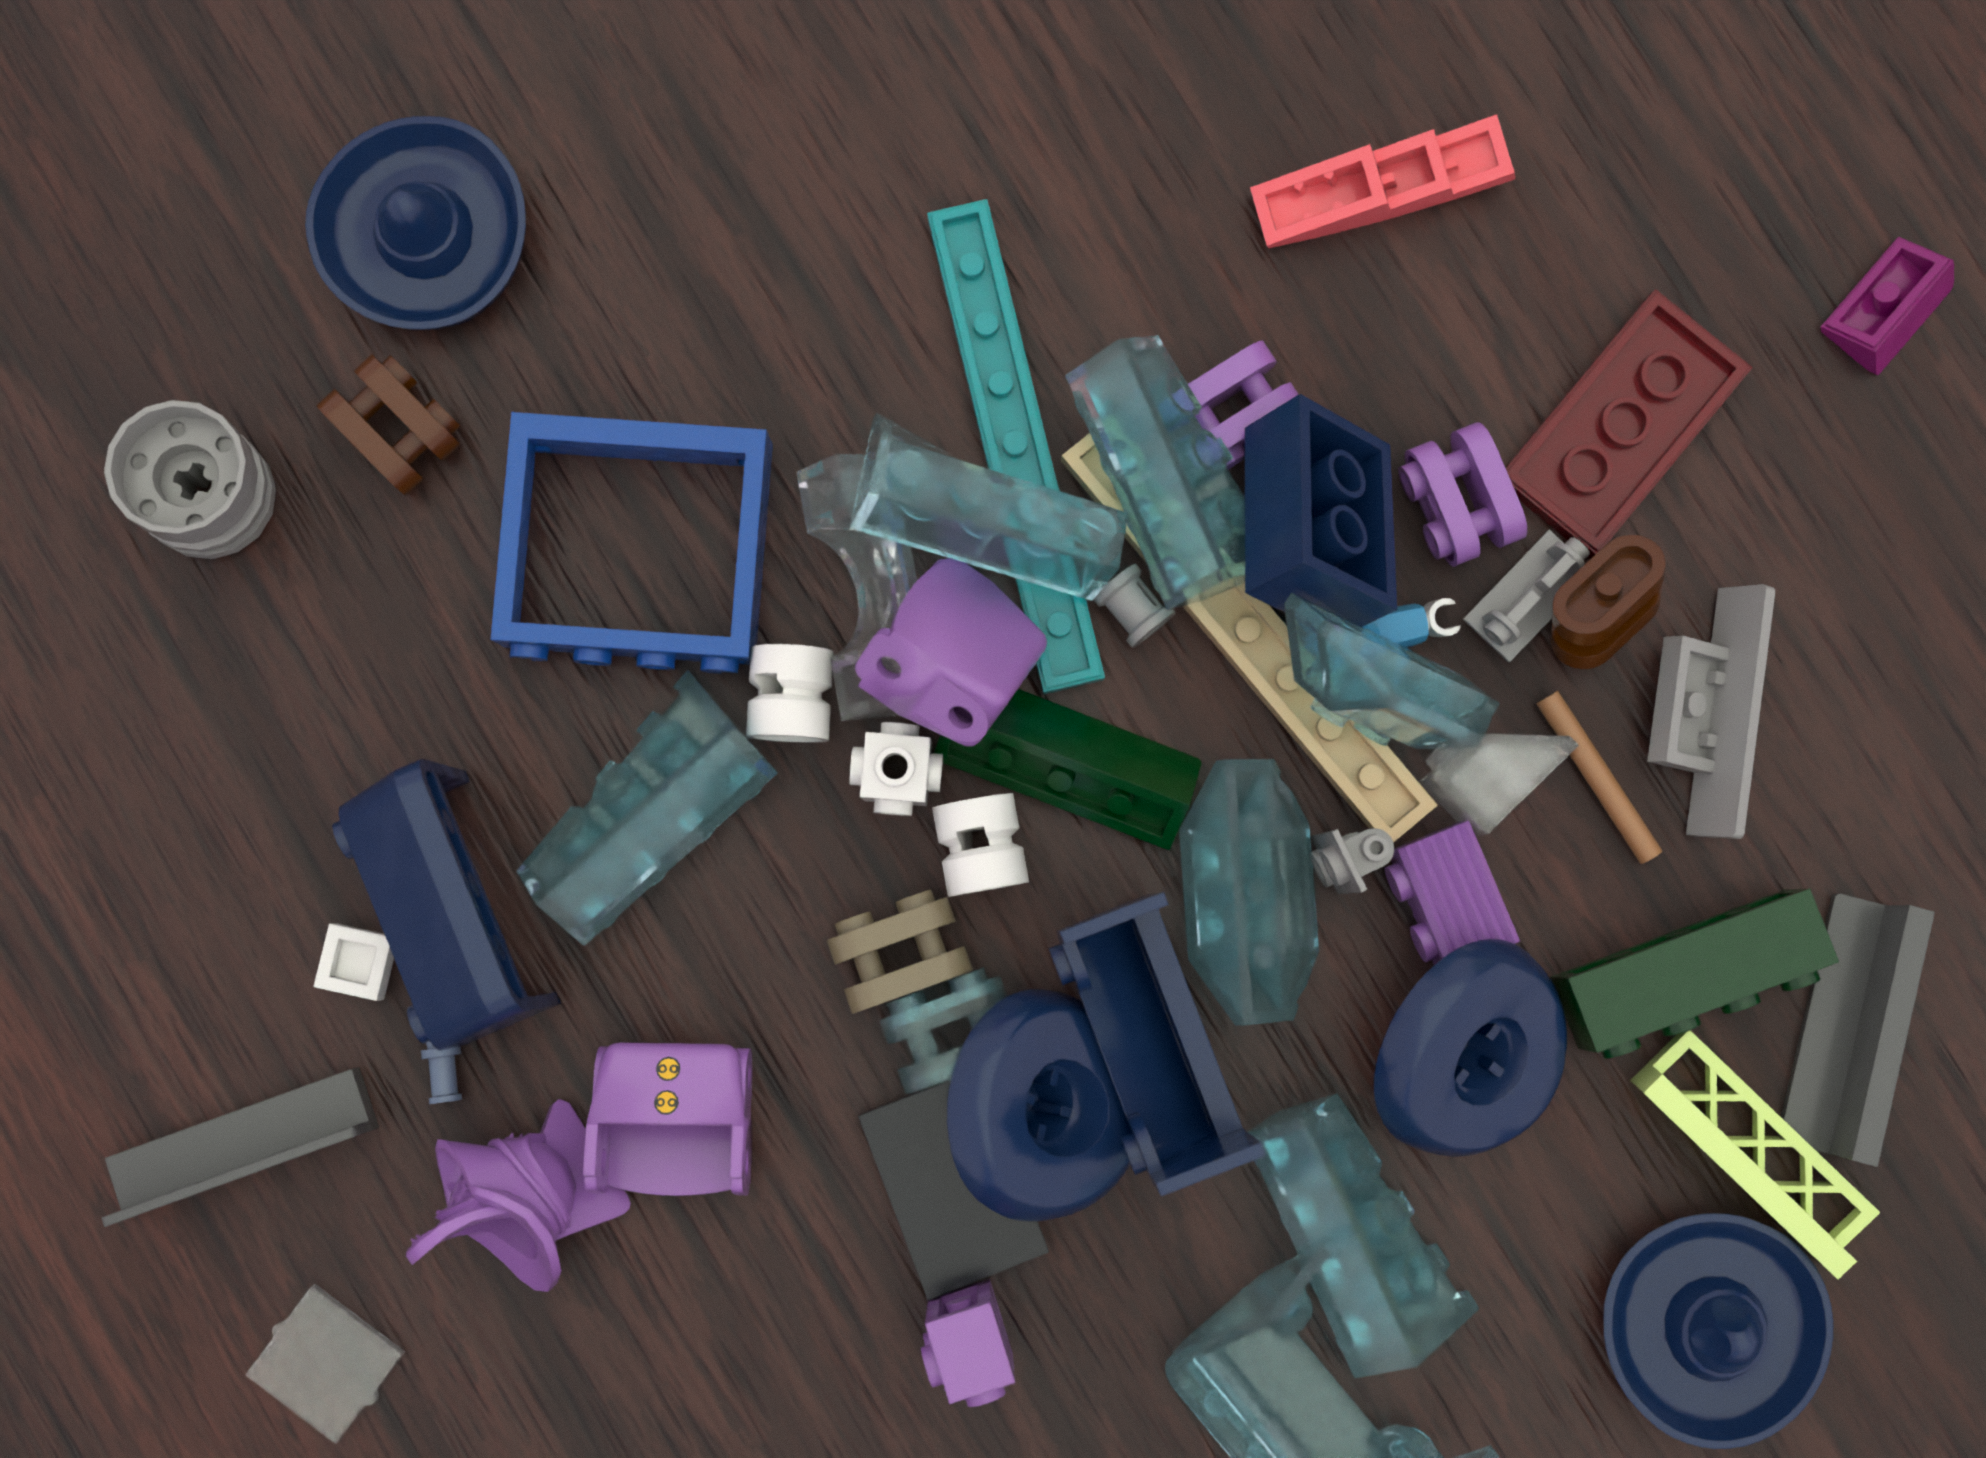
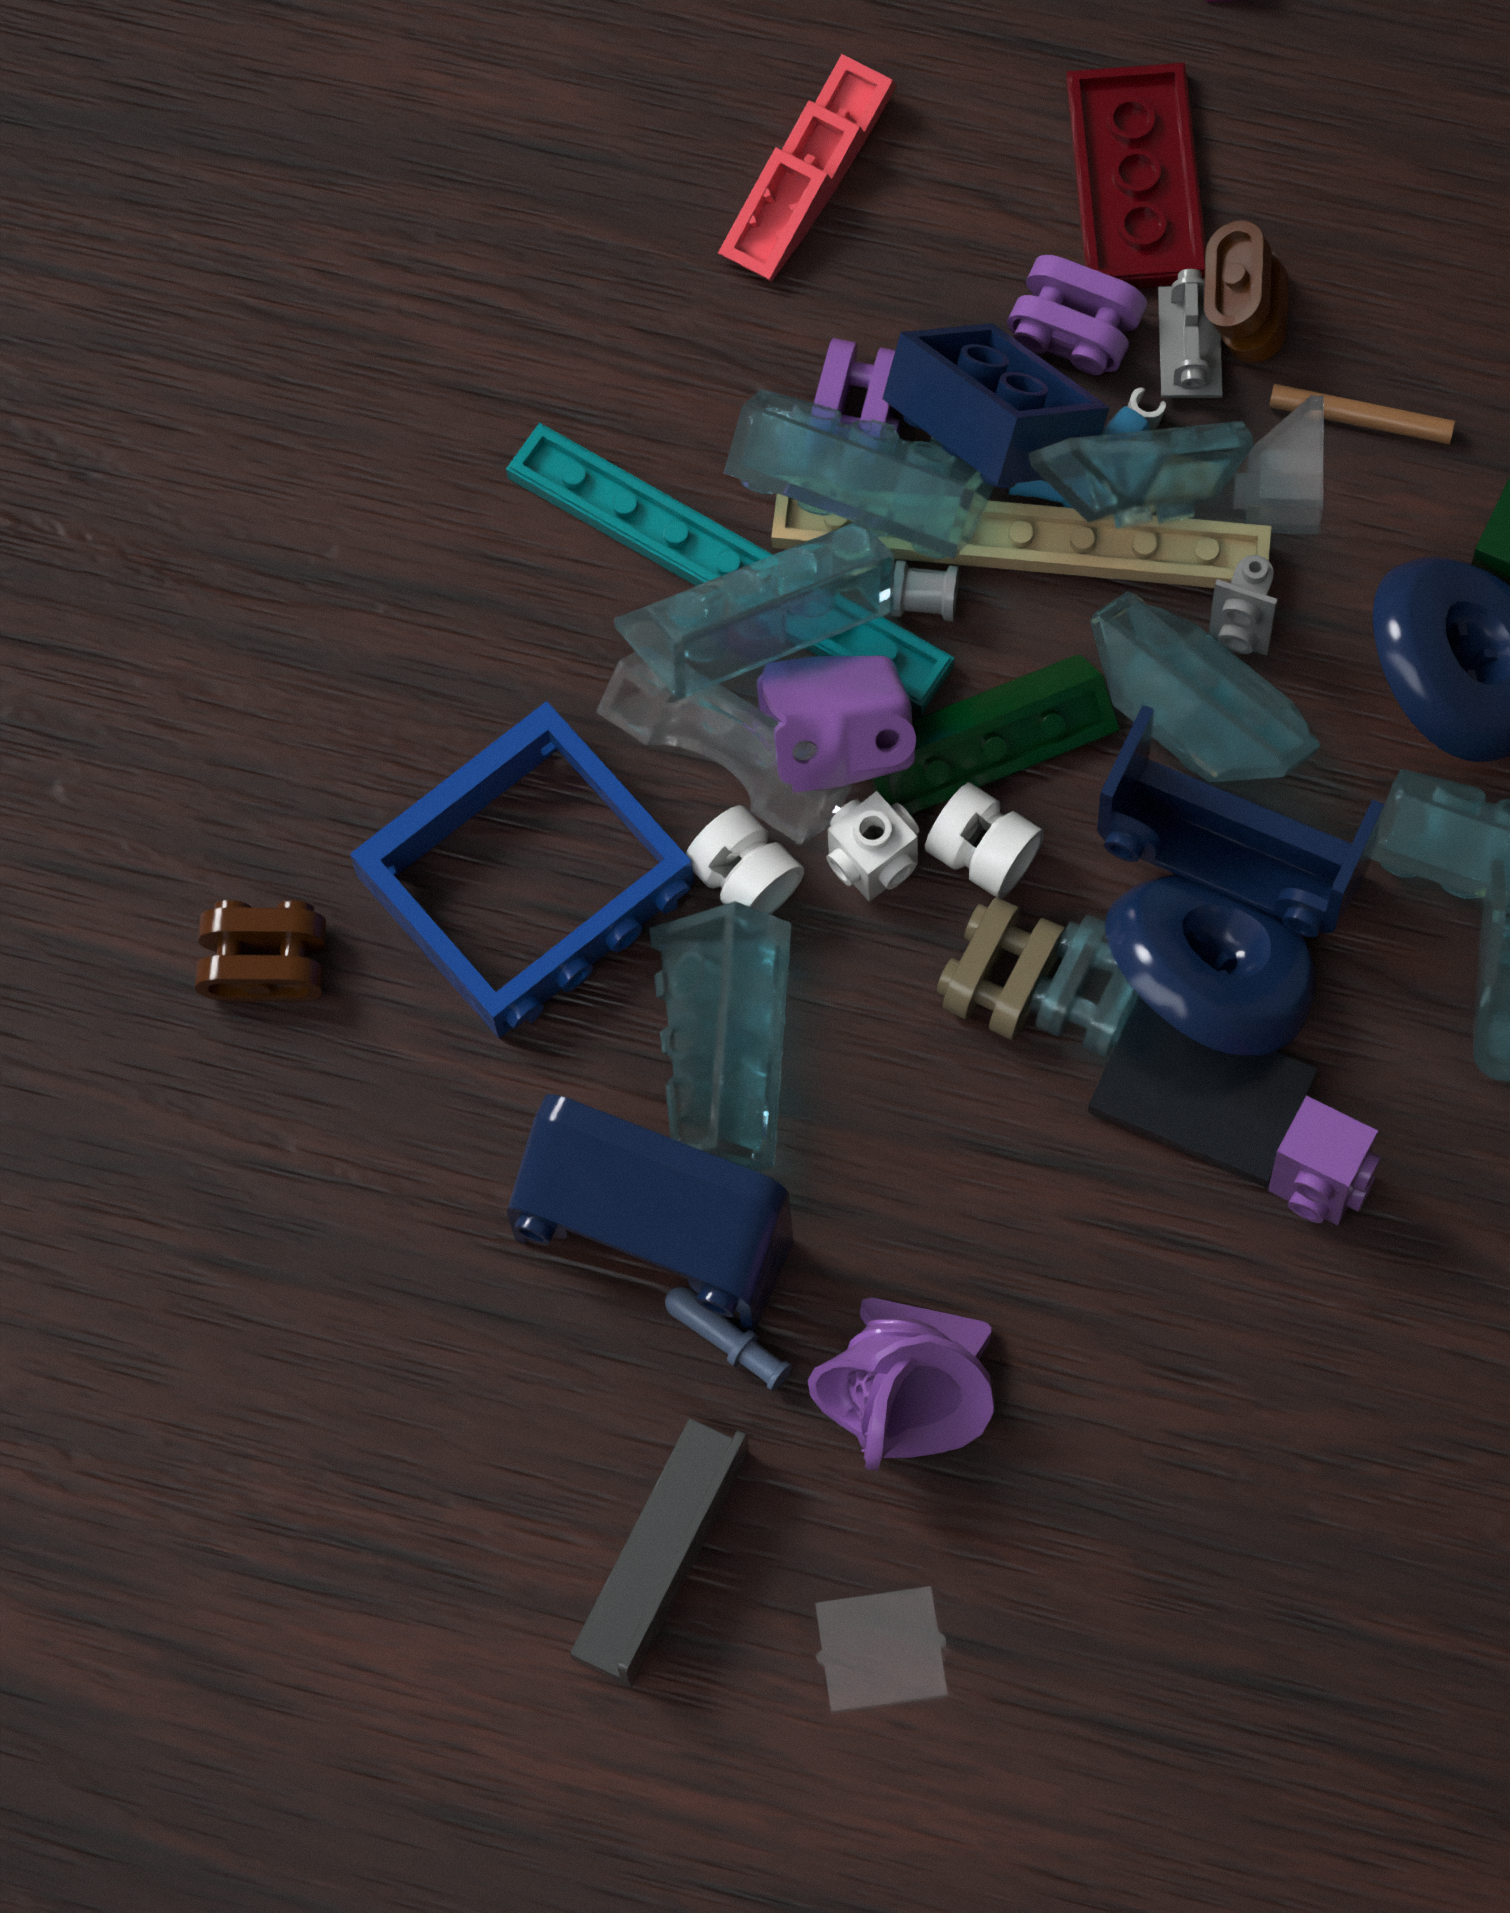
camera: 35 degrees left, 15 degrees down
(171, 452) = (152, 1079): light grey wheel -> none
(355, 962) = (616, 1341): white plate -> none
(417, 223) = (142, 798): dark blue hat -> none
(670, 1119) = (961, 1221): medium lavender piece -> none
(1448, 892) = (1333, 574): medium lavender brick -> none
(1712, 709) = (1390, 298): light grey bracket -> none

